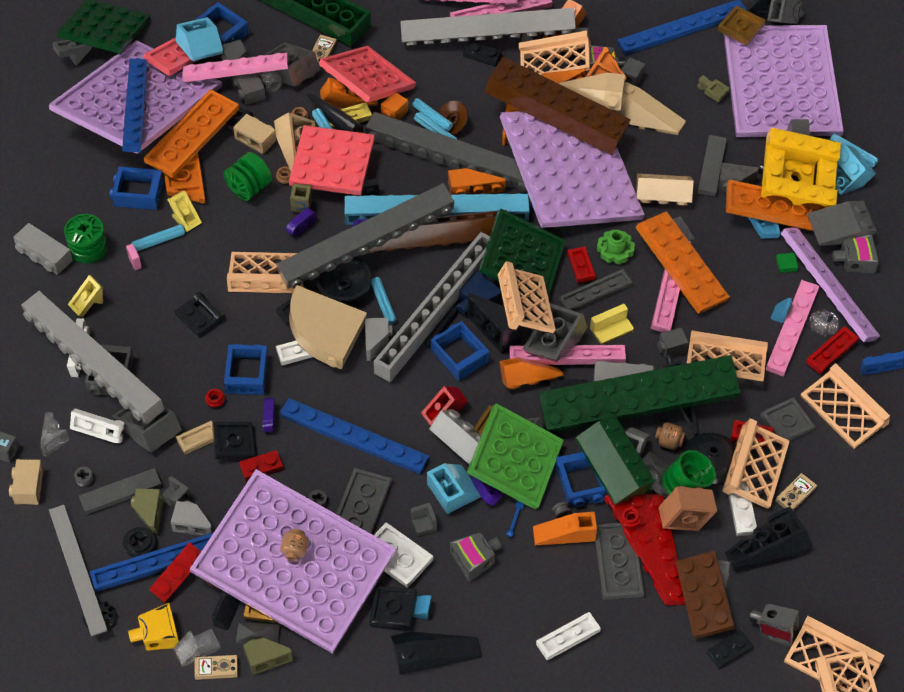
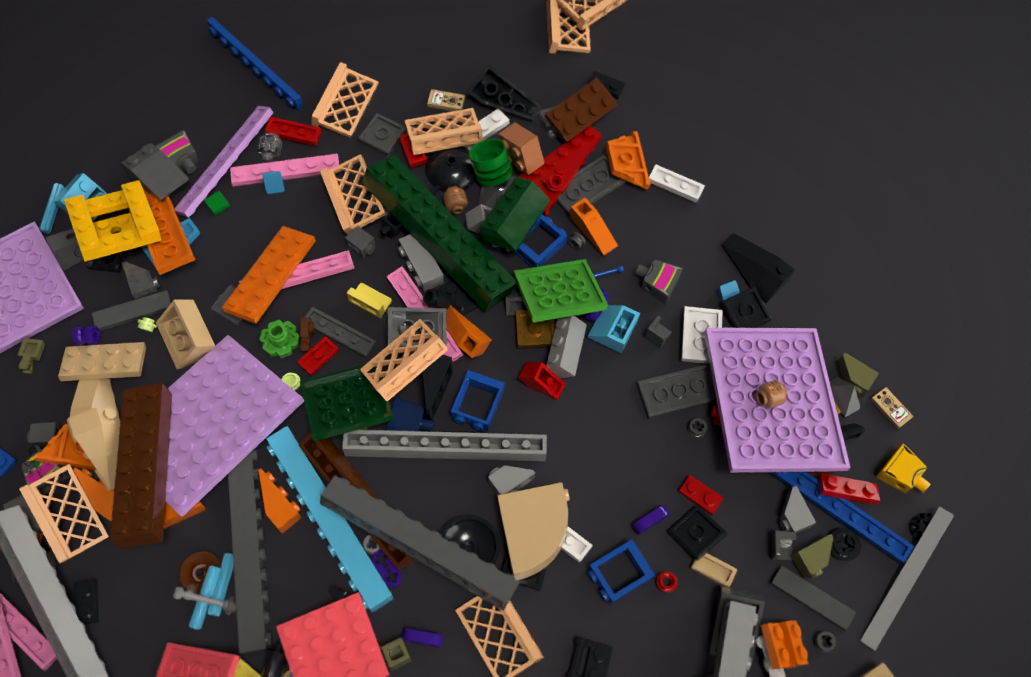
camera: 125 degrees left, 10 degrees up
(104, 437) = (784, 645): none -> orange plate
(196, 646) = (888, 433): clear slope -> none
(354, 436) = (619, 440): blue plate -> none
(383, 300) = (465, 499): medium azure axle -> none
(394, 106) = (217, 640): orange brick -> none
(441, 93) = (228, 605): none -> light grey piece
(572, 237) = (292, 380): none -> yellowish green plate
(572, 364) = (437, 299): none -> black brick
(609, 262) = (307, 328): none -> reddish brown plate
(623, 606) = (627, 160): none -> orange wing
(674, 128) = (102, 361): none -> tan plate
(690, 167) = (146, 324): none -> yellowish green plate
(705, 125) = (86, 335): none -> dark purple wheel
(777, 623) = (570, 58): dark grey torso -> none

